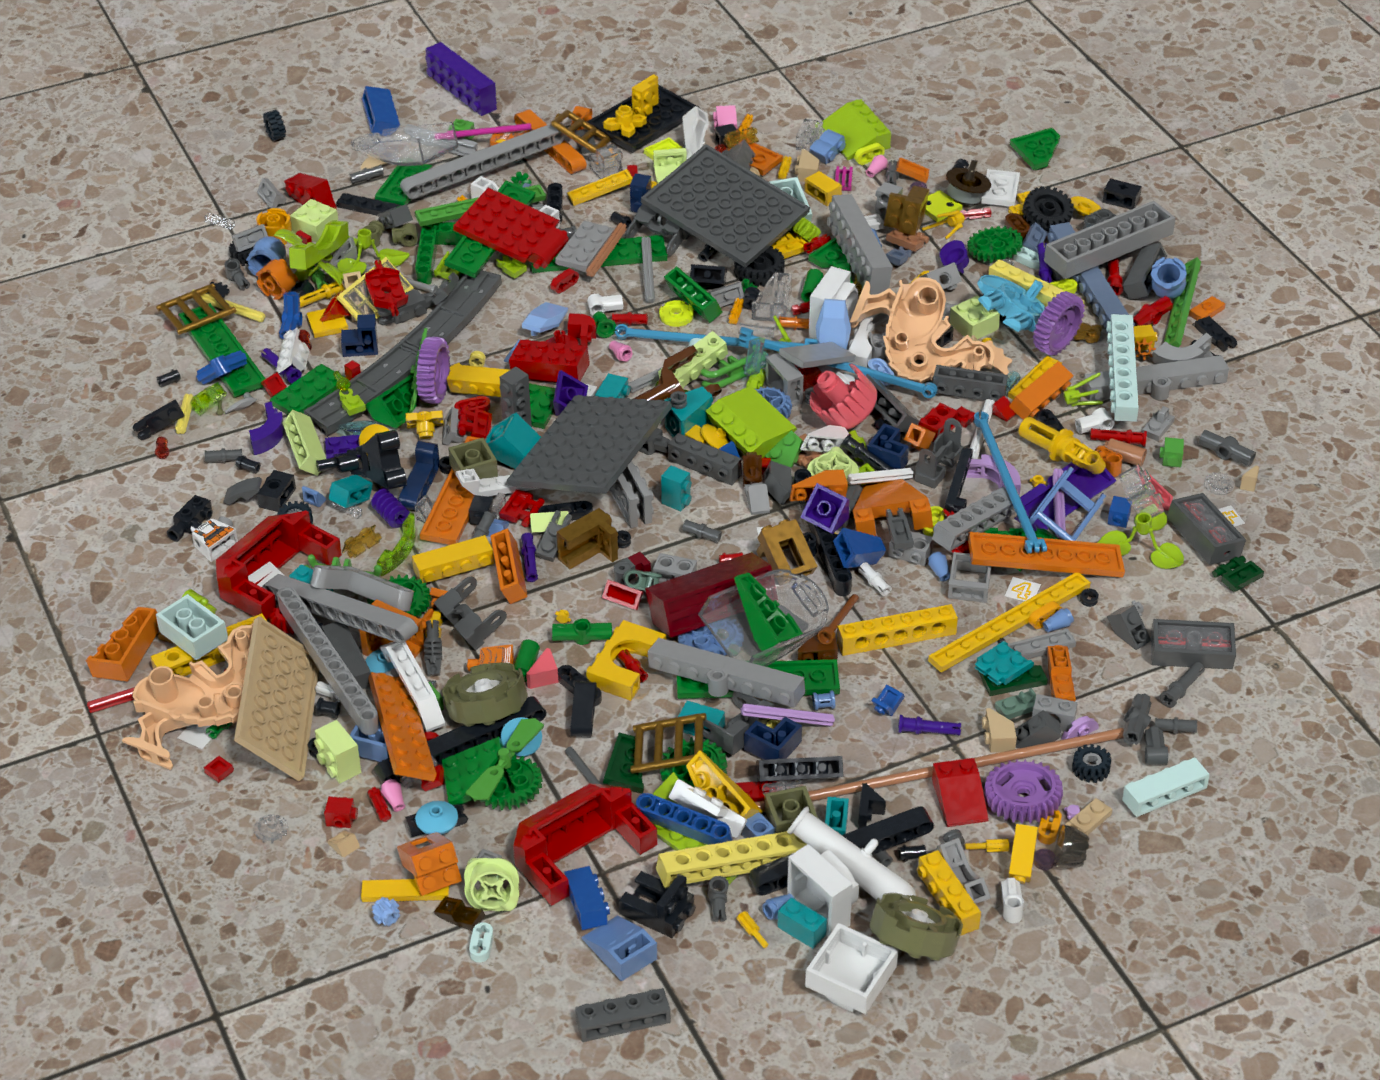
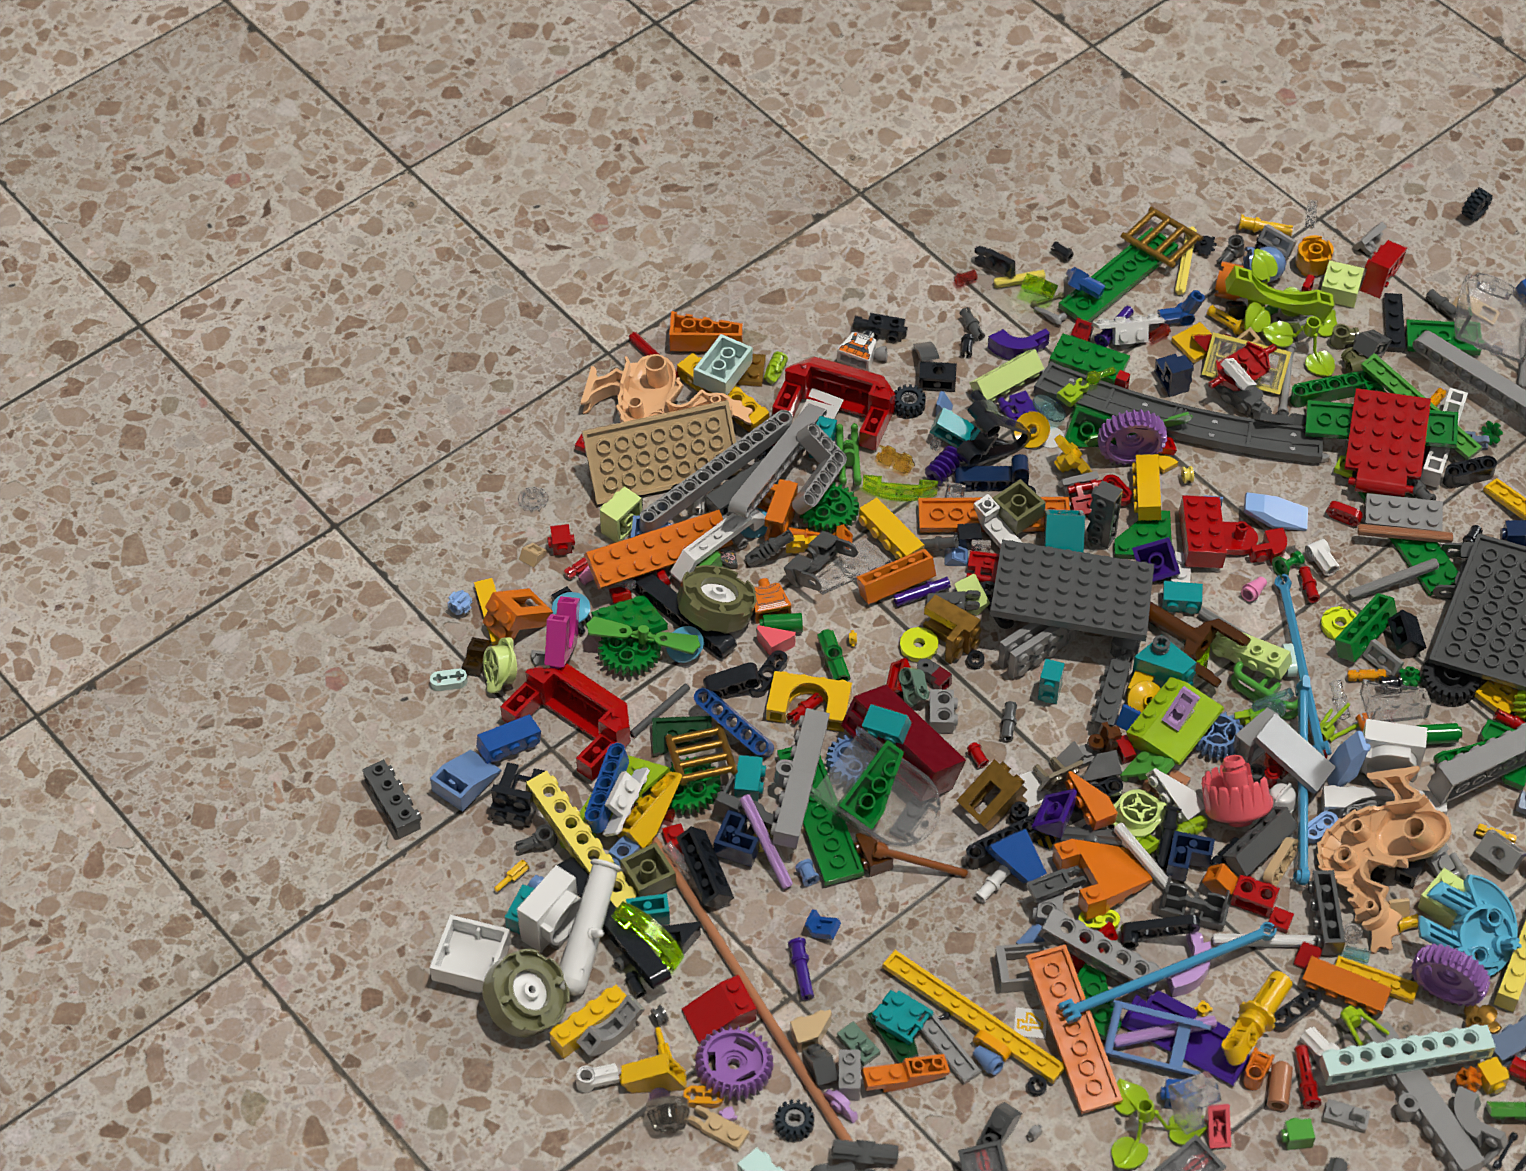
camera: 75 degrees right, 10 degrees up
(214, 253) = (1256, 224): none -> yellow pin
(405, 288) = (1235, 371): none -> white plate
(471, 825) = (562, 632): none -> dark pink arch
(481, 598) = (846, 568): none -> clear wing
(588, 565) = (921, 635): none -> neon yellow tile
(626, 716) = (725, 719): none -> blue beam
(711, 579) = (886, 724): none -> teal brick
(752, 403) = (1181, 708): none -> lavender slope
(778, 508) = (1050, 781): none -> dark tan plate
(855, 821) = (651, 931): none -> clear neon green slope
(897, 629) = (922, 915): yellow brick -> none
(909, 400) = (1281, 861): none -> tan beam

